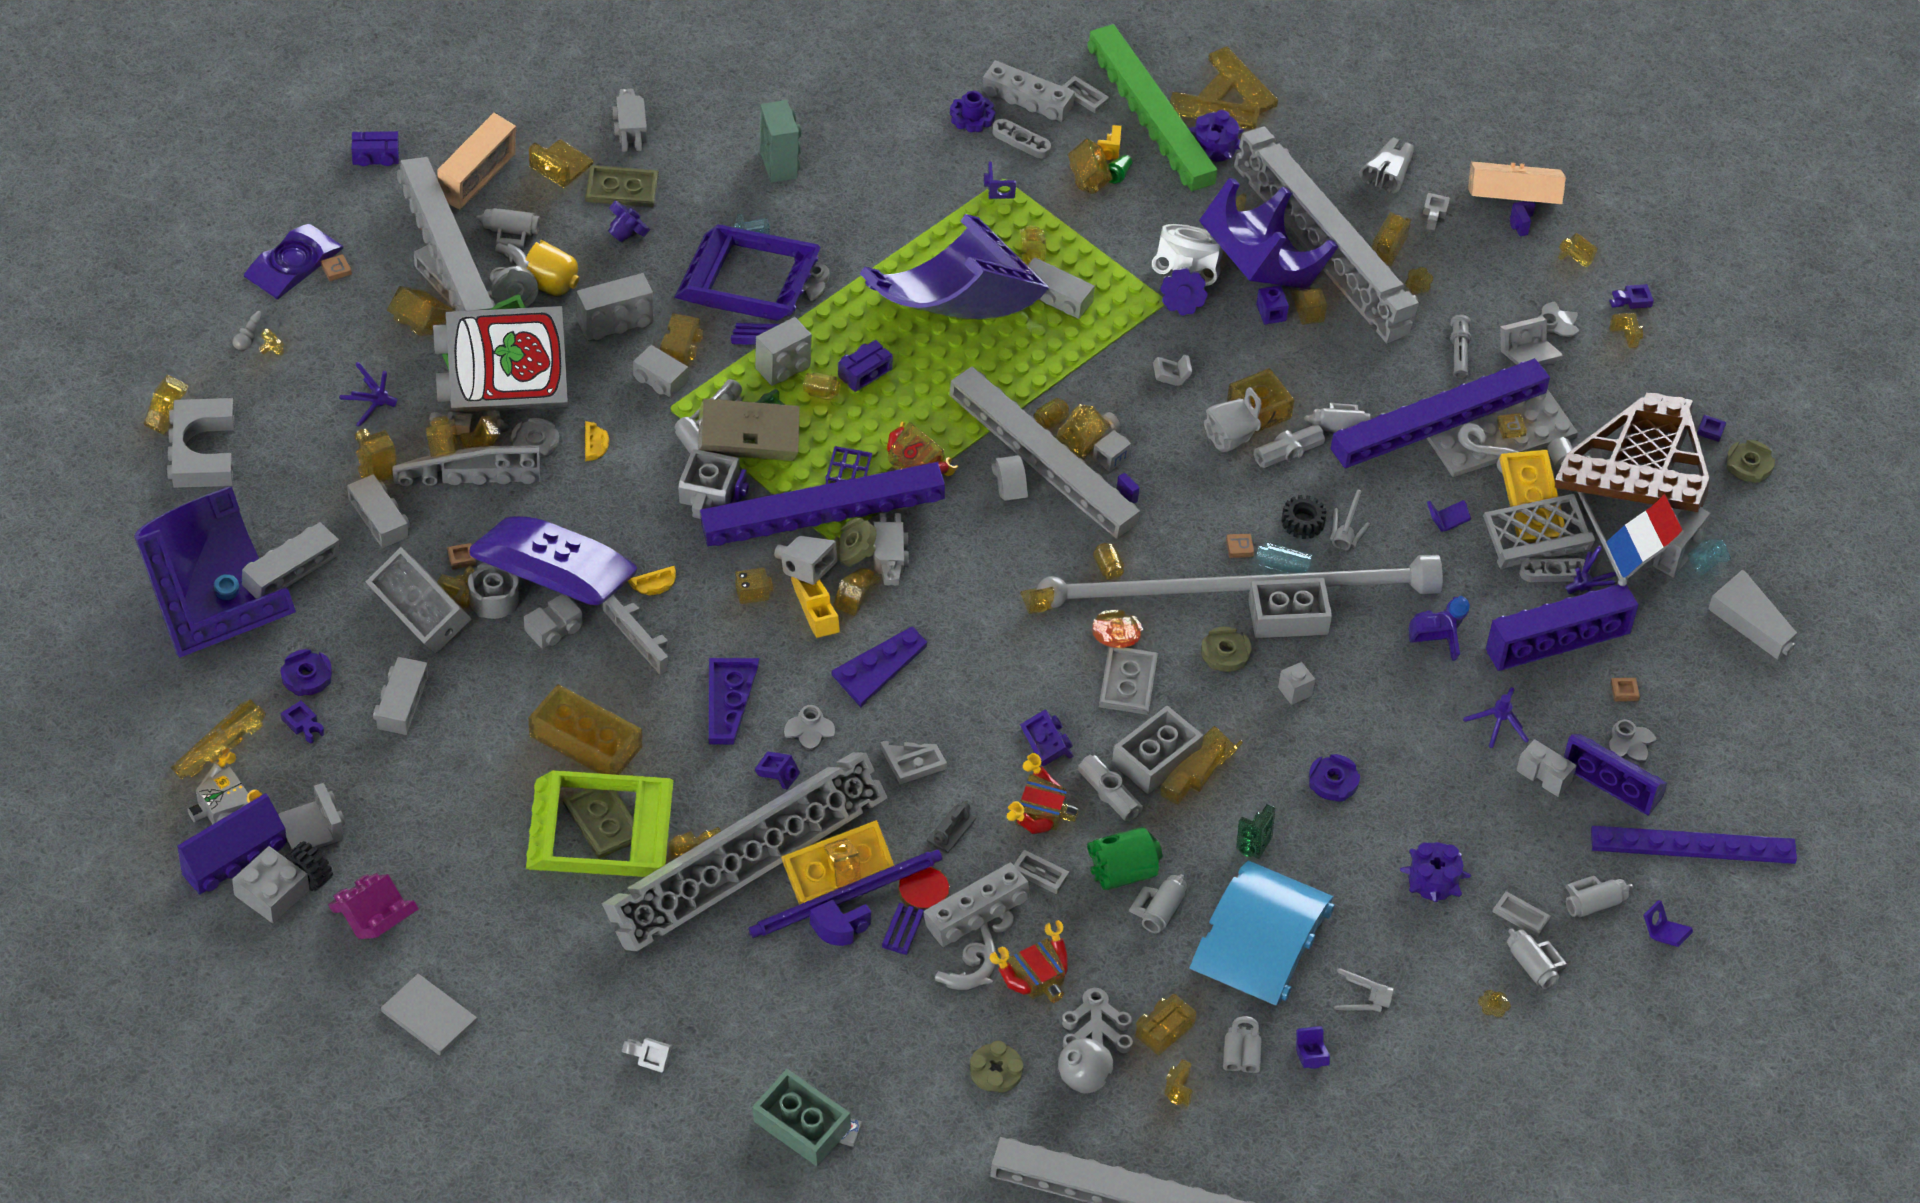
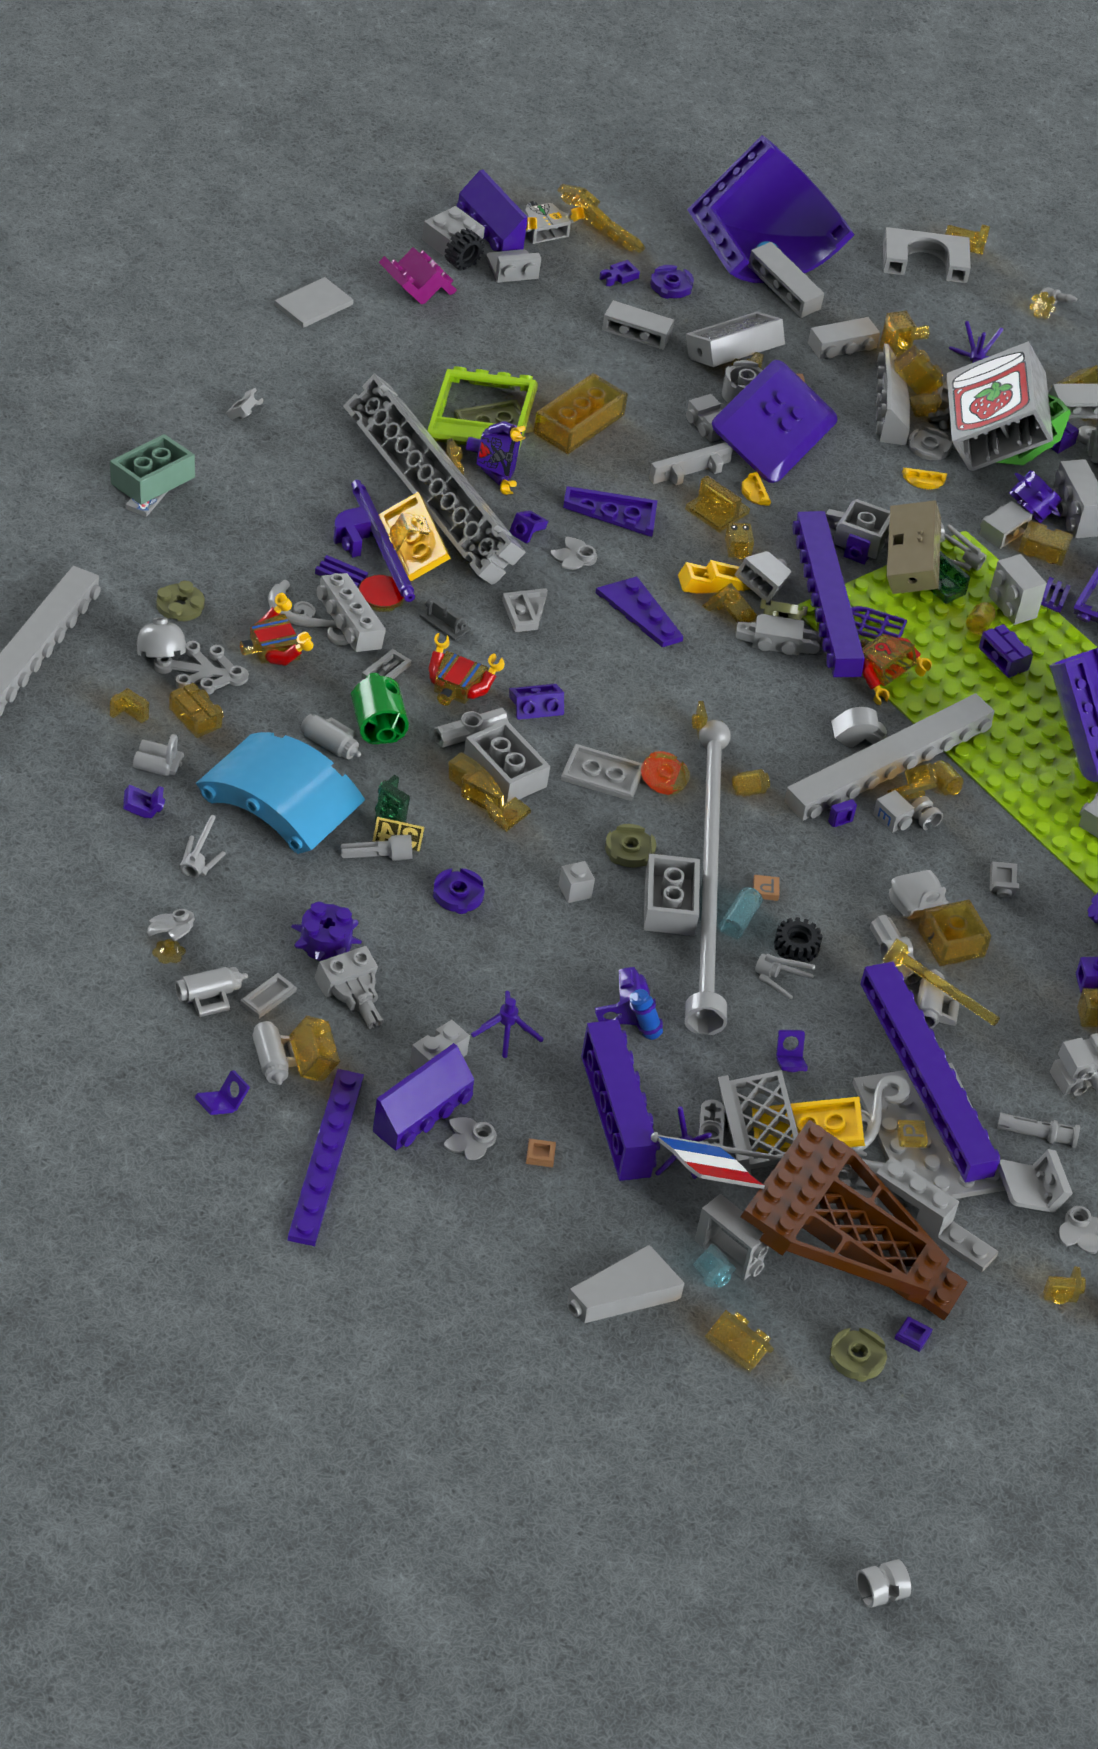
camera: 95 degrees right, 5 degrees down
(623, 340) = (1035, 496): none -> dark purple brick
(686, 793) = (498, 452): none -> torso
(698, 608) = (716, 505): none -> clear yellow bracket
(1281, 831) = (386, 827): none -> clear yellow sticker
(1300, 833) = (397, 847): none -> light grey piece
(1311, 434) = (898, 954): none -> clear yellow bar
(1470, 1003) = (175, 924): none -> light grey plate
(1489, 845) = (352, 981): none -> light grey brick
(1586, 860) = (314, 1048): none -> clear yellow brick
(1593, 408) = (936, 1214): none -> light grey bracket
(1771, 537) = (738, 1340): none -> clear yellow bracket

